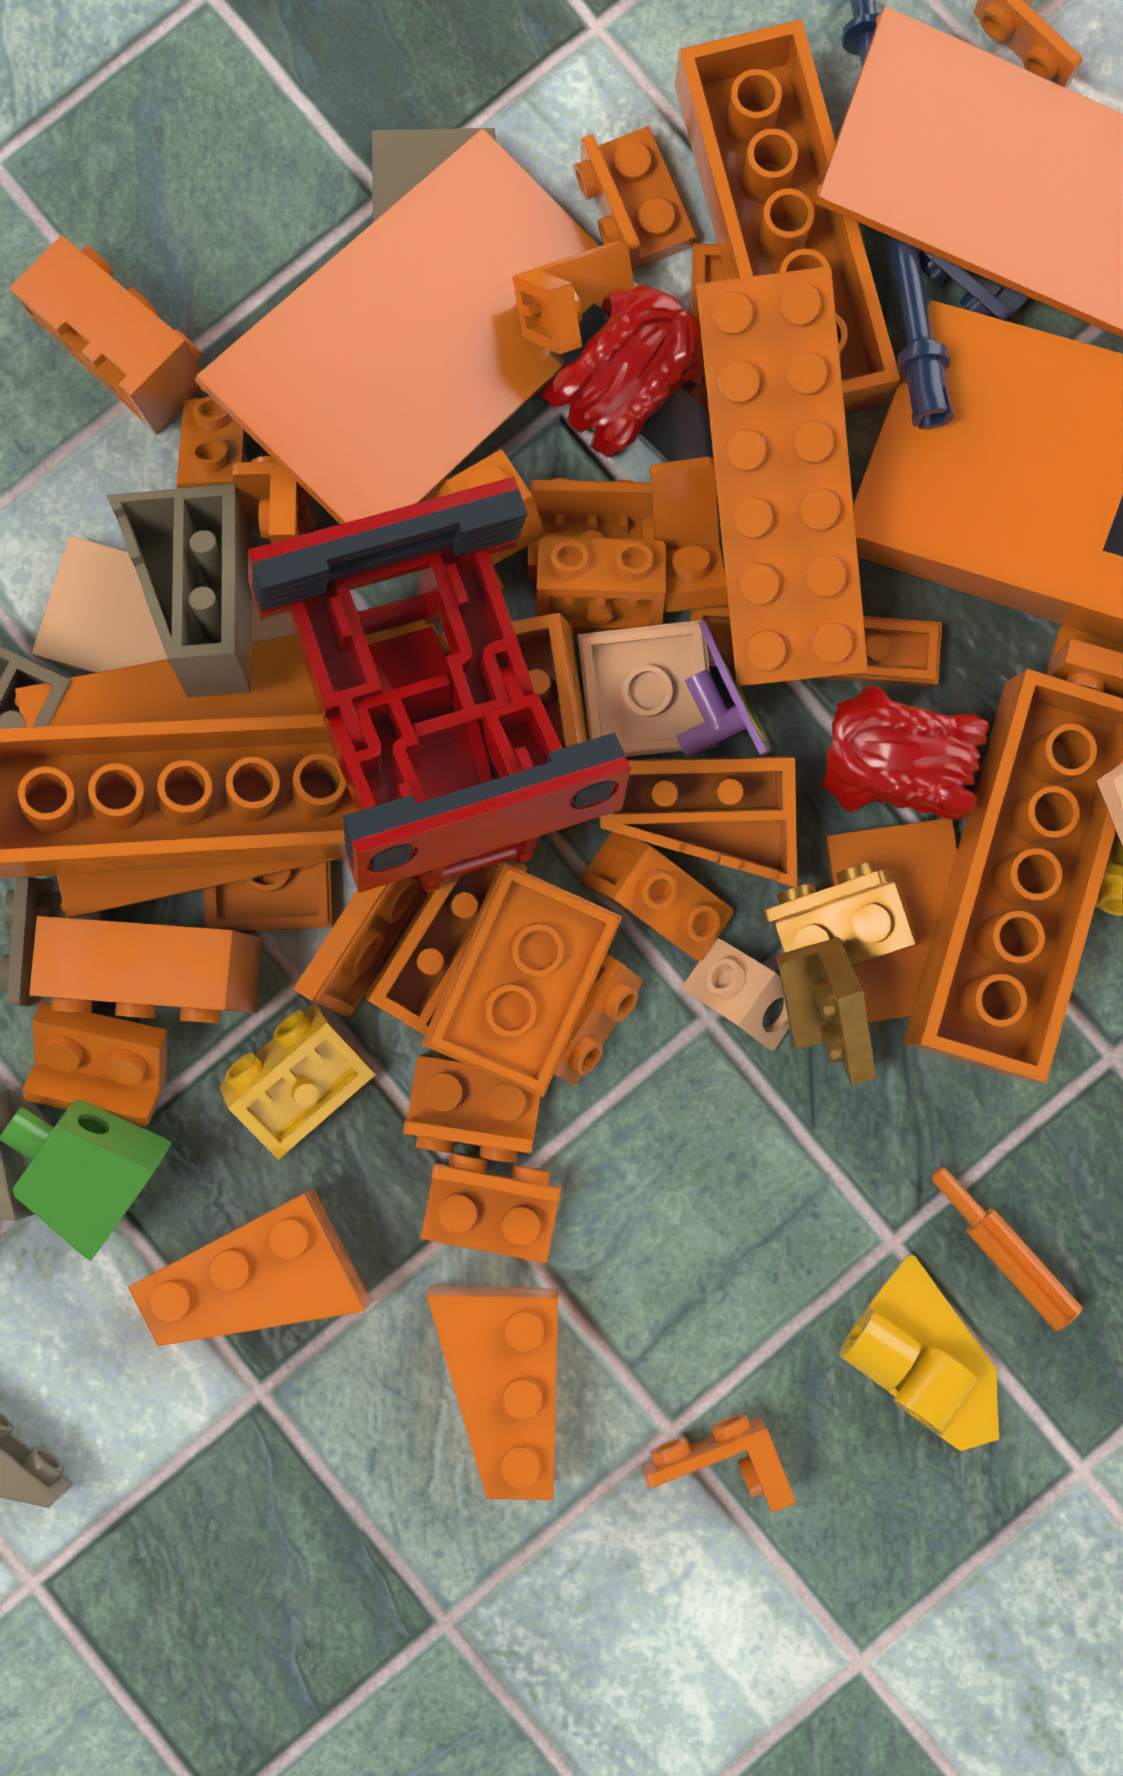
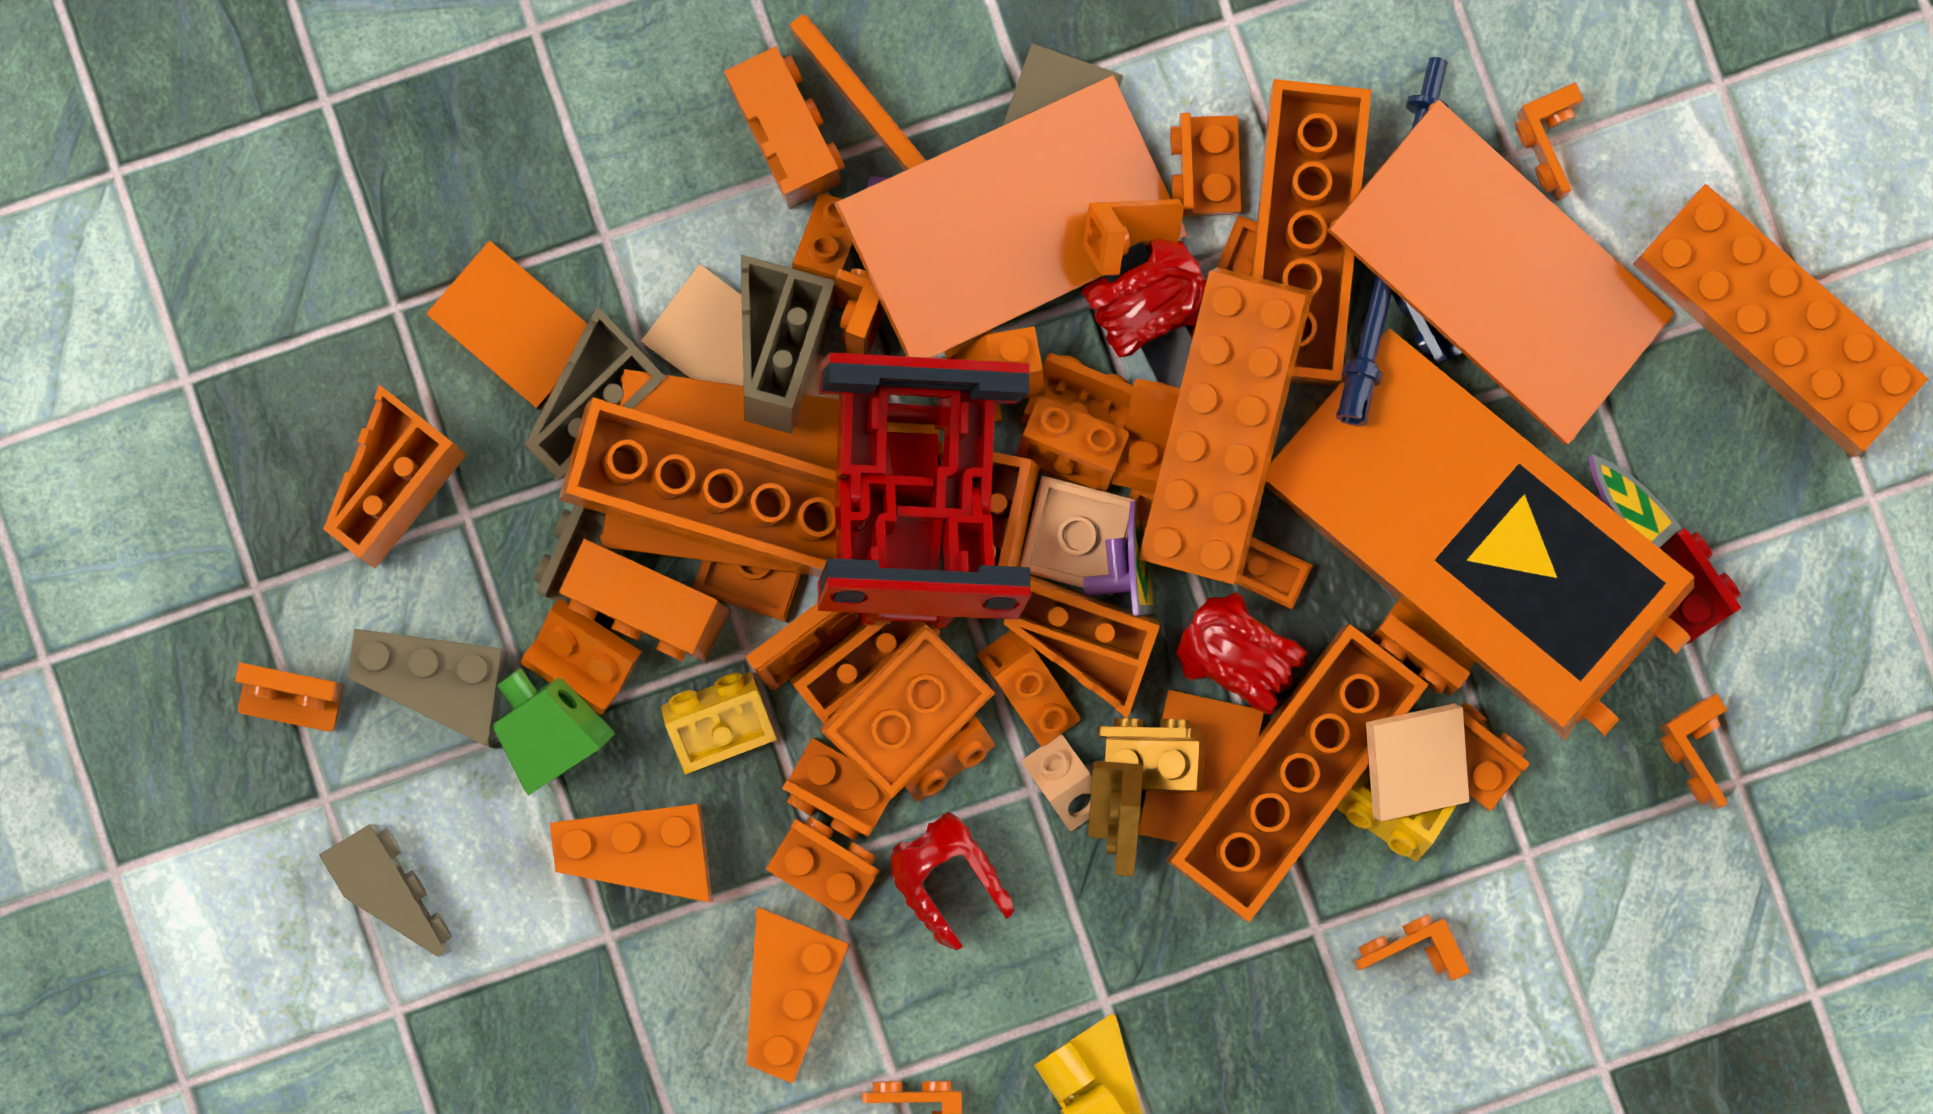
camera: 25 degrees right, 0 degrees up
(171, 257) = (855, 93): none -> orange tile
(606, 1154) = (916, 859): none -> red piece
(1011, 1255) = (1185, 1041): orange axle -> none

